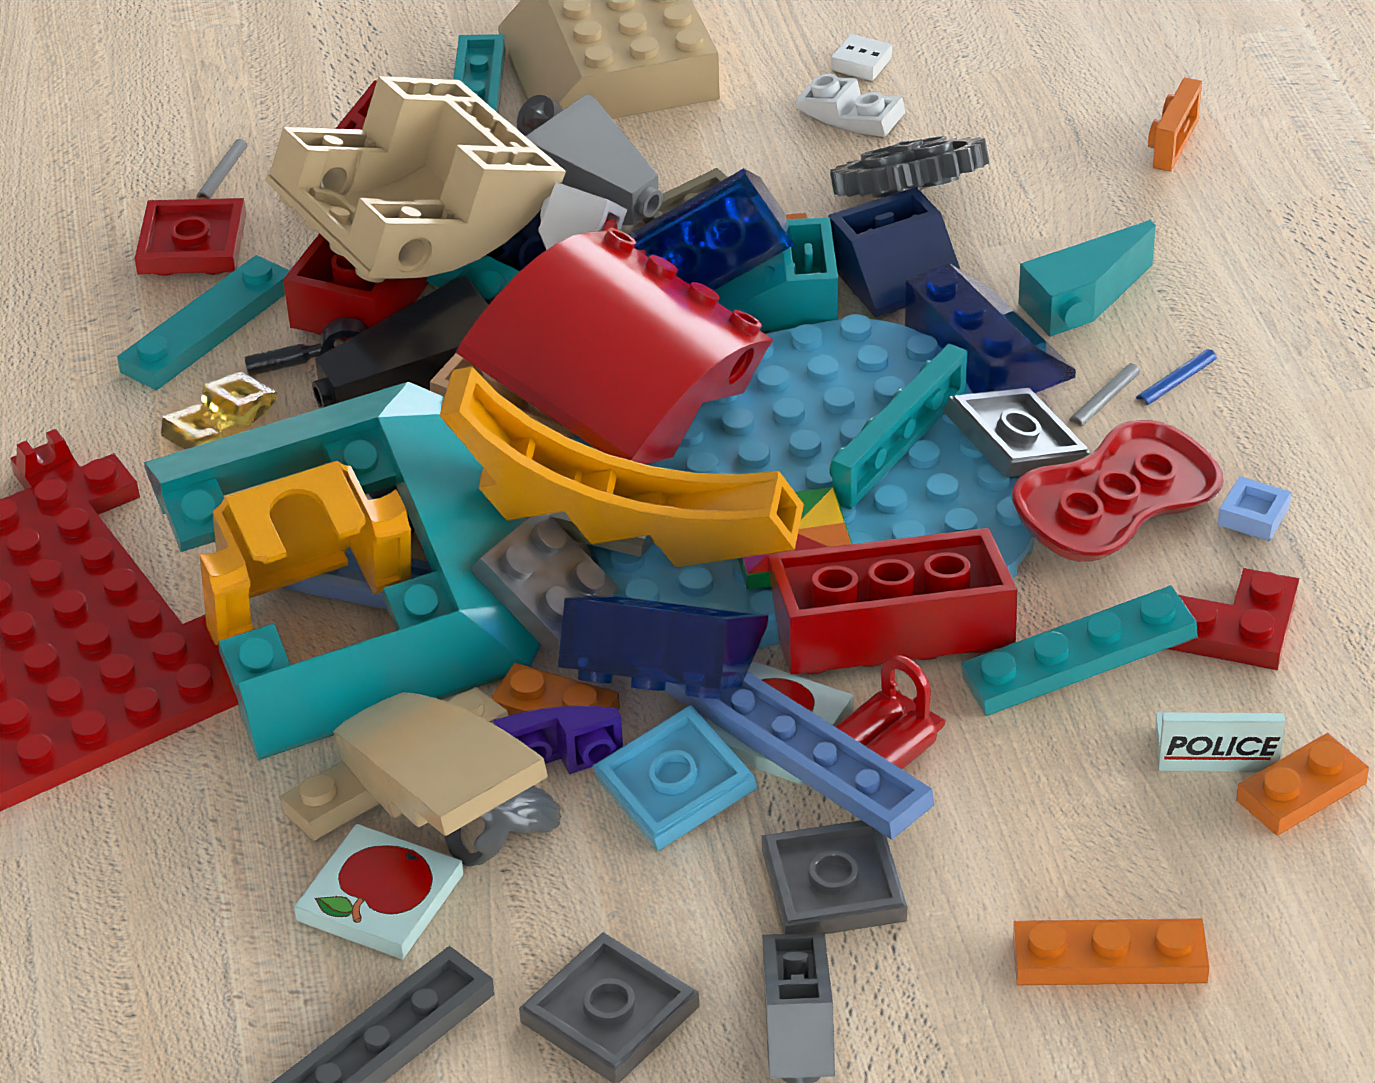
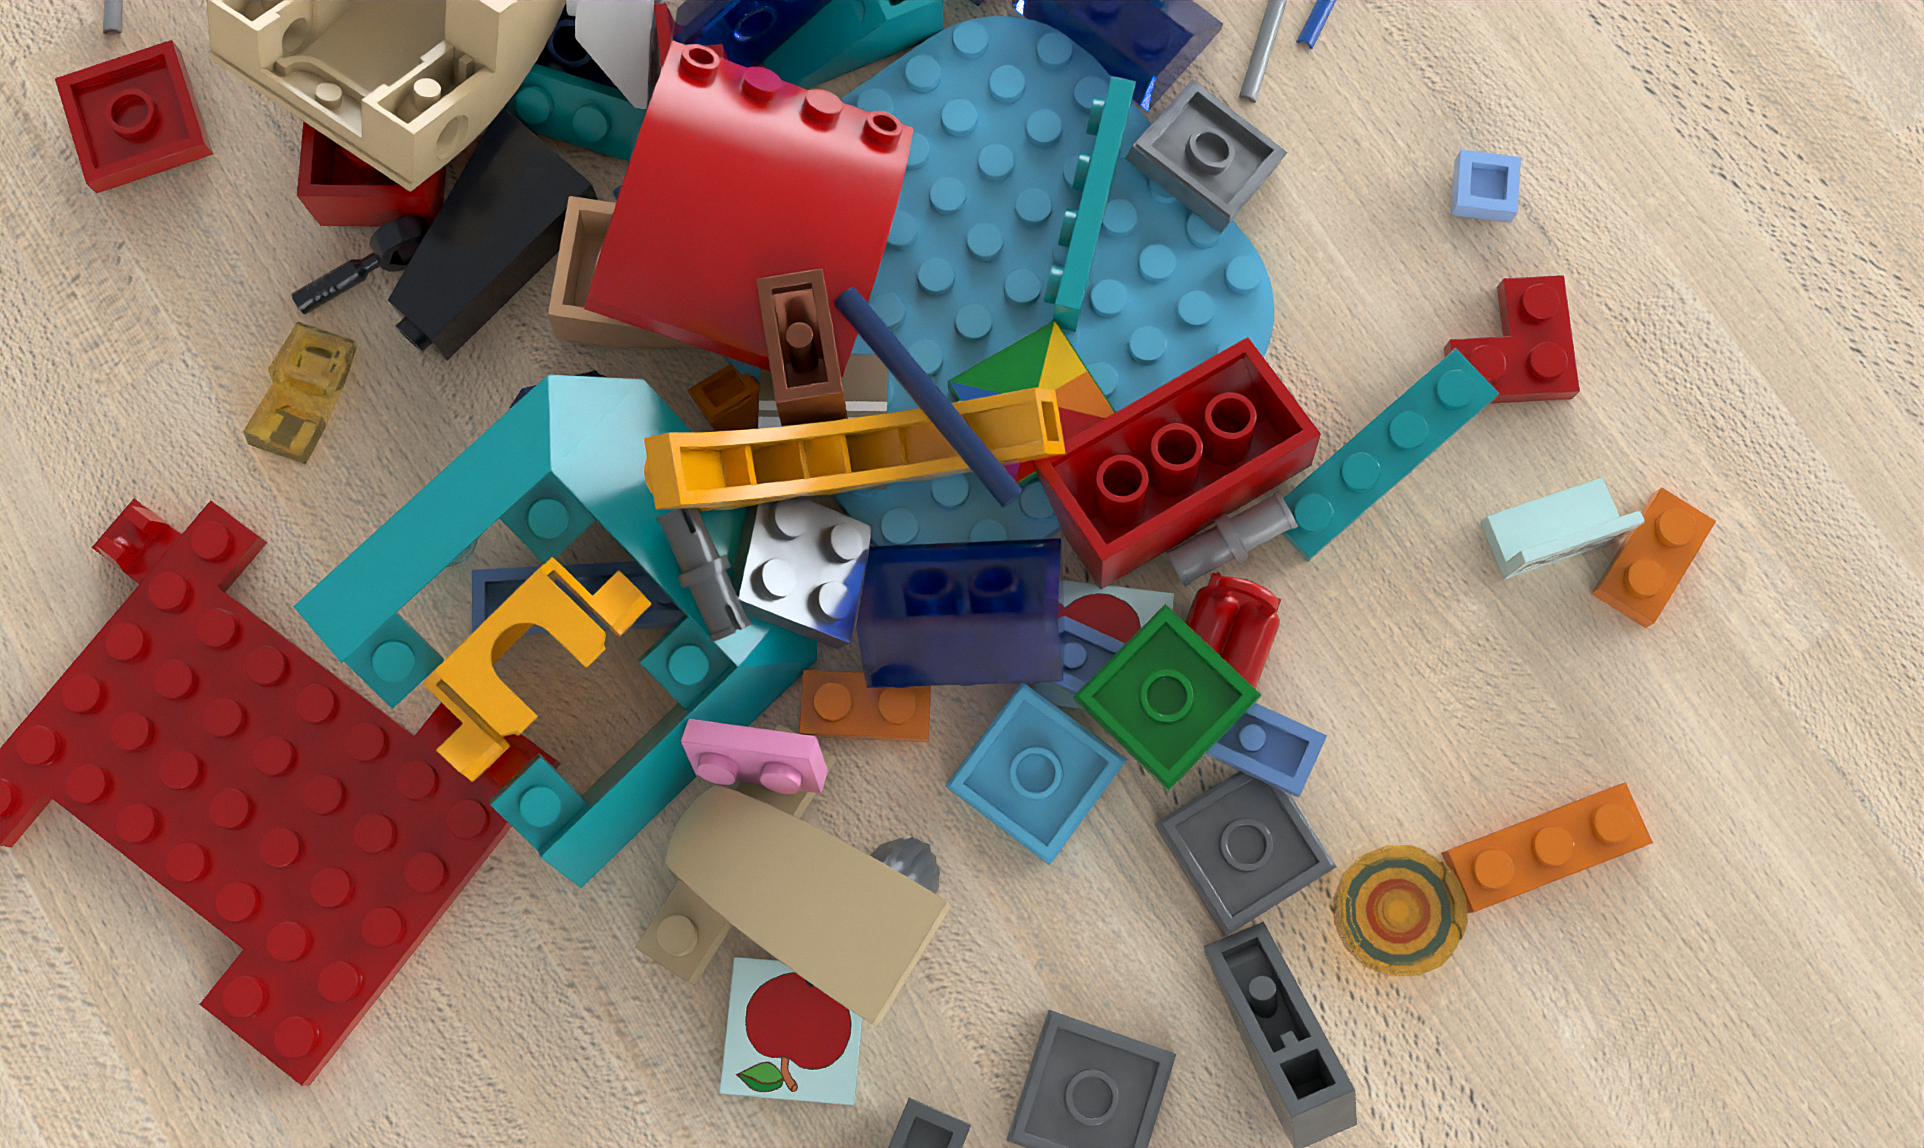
camera: 25 degrees left, 35 degrees up
(204, 323) = (216, 247): teal plate -> none
(444, 672) = (755, 756): none -> bright pink plate
(462, 526) = (704, 572): none -> dark grey pin
(568, 733) = (918, 760): dark purple slope -> none
(609, 403) = (801, 348): none -> copper slope
(693, 462) = (928, 397): none -> dark blue bar
(805, 732) = (1166, 697): none -> green tile
(935, 661) = (1231, 538): none -> light grey pin
(952, 959) = (1400, 911): none -> clear yellow tile
(1102, 500) = (1328, 238): red plate -> none

